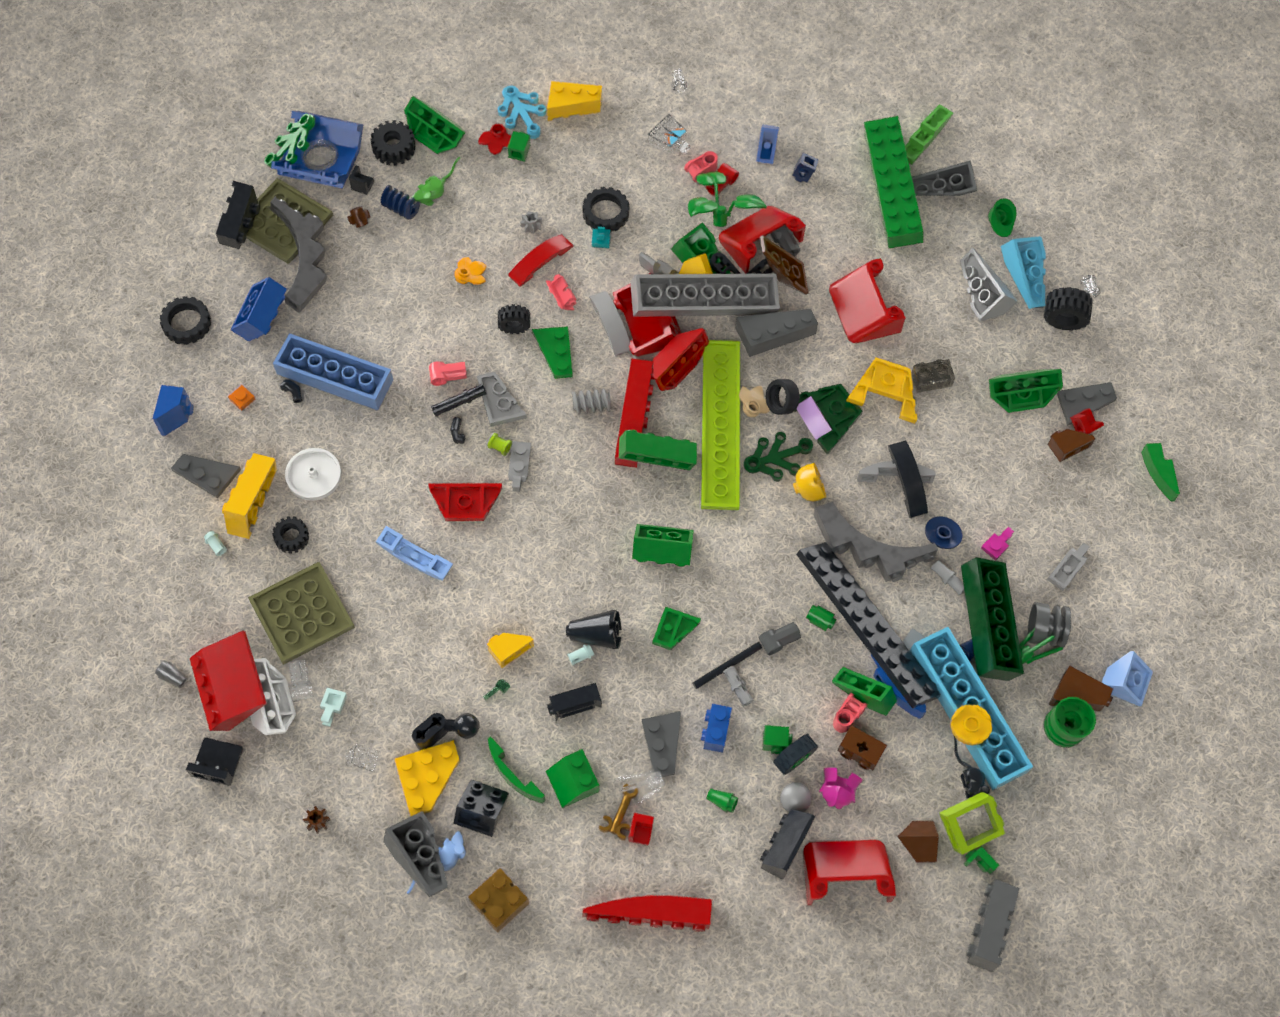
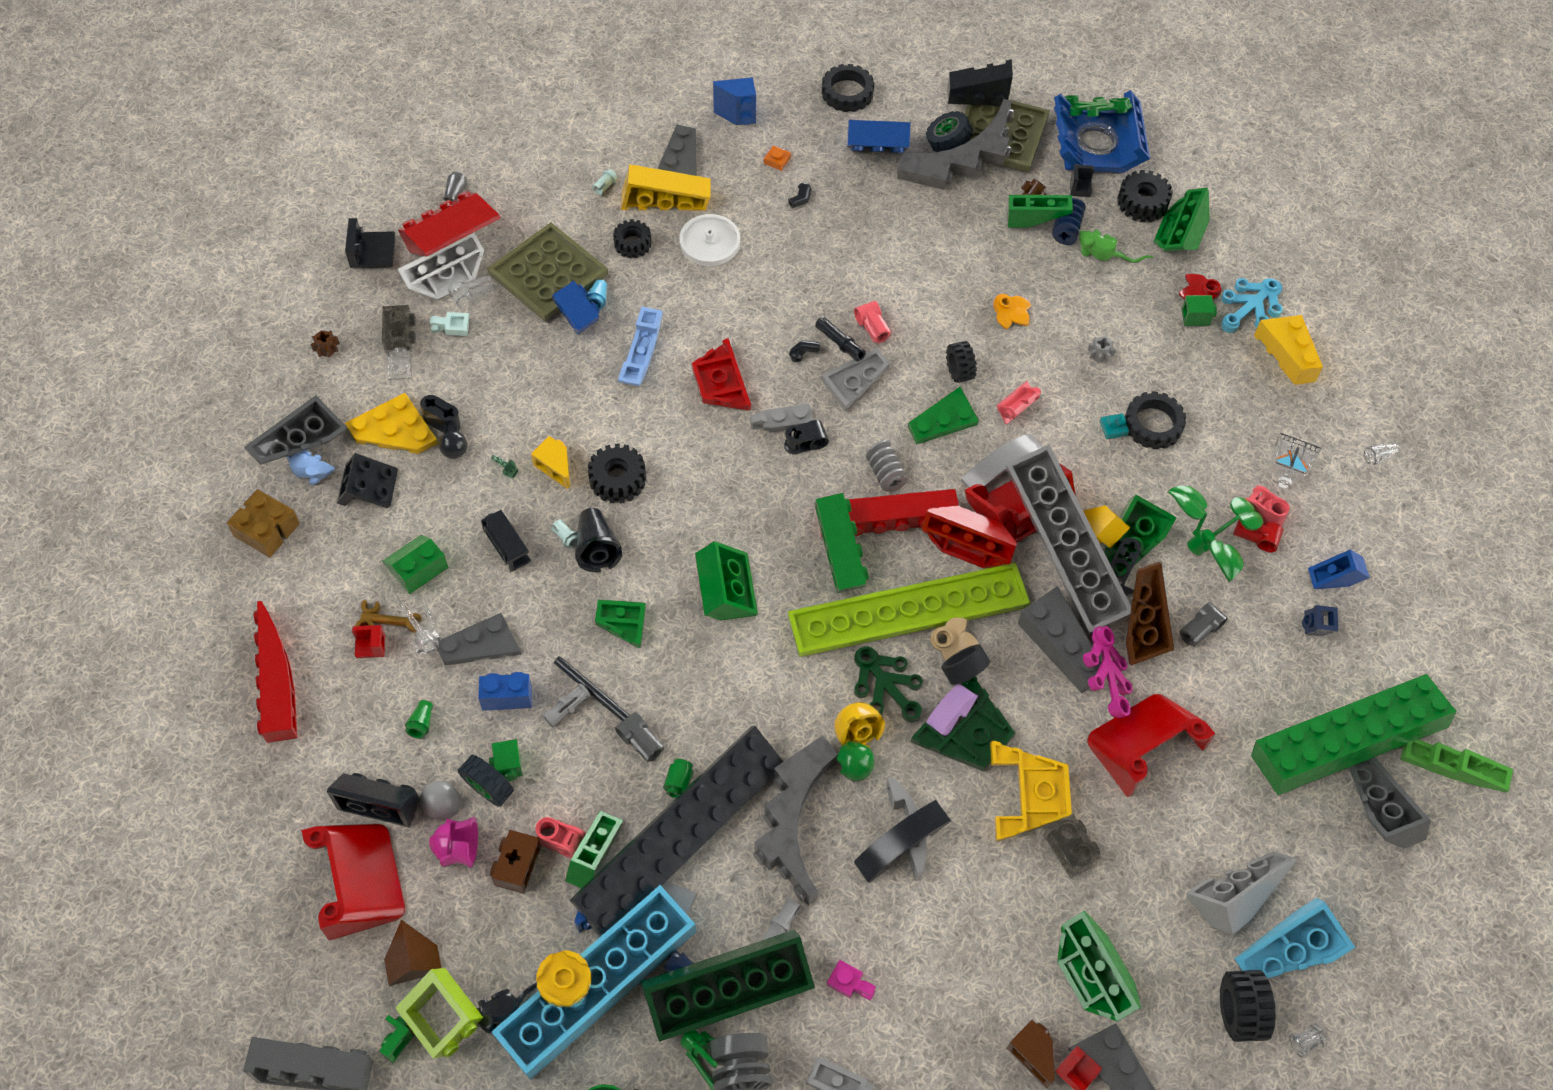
camera: 75 degrees right, 5 degrees down
(267, 250) = (949, 131): none -> black wheel
(320, 757) = (397, 327): none -> clear smoke brick
(333, 371) = (831, 220): medium blue brick -> none
(343, 577) = (598, 293): none -> medium azure cone
(357, 594) = (576, 307): none -> blue brick
(383, 219) = (1032, 210): none -> green slope
(499, 444) = (800, 391): lime bush -> none
(529, 791) = (426, 480): green slope -> none
(538, 258) = (1060, 369): red slope -> none
(540, 614) = (617, 487): none -> black tyre
(545, 451) = (807, 435): none -> black piece
(654, 266) = (1082, 480): light grey slope -> none
(740, 237) = (1209, 587): red windscreen -> none
(818, 306) = (1103, 640): none -> dark pink plant
(838, 491) = (856, 761): none -> green hair
(943, 532) = (852, 901): dark blue dish -> none
(1002, 217) = (1363, 889): green piece -> none

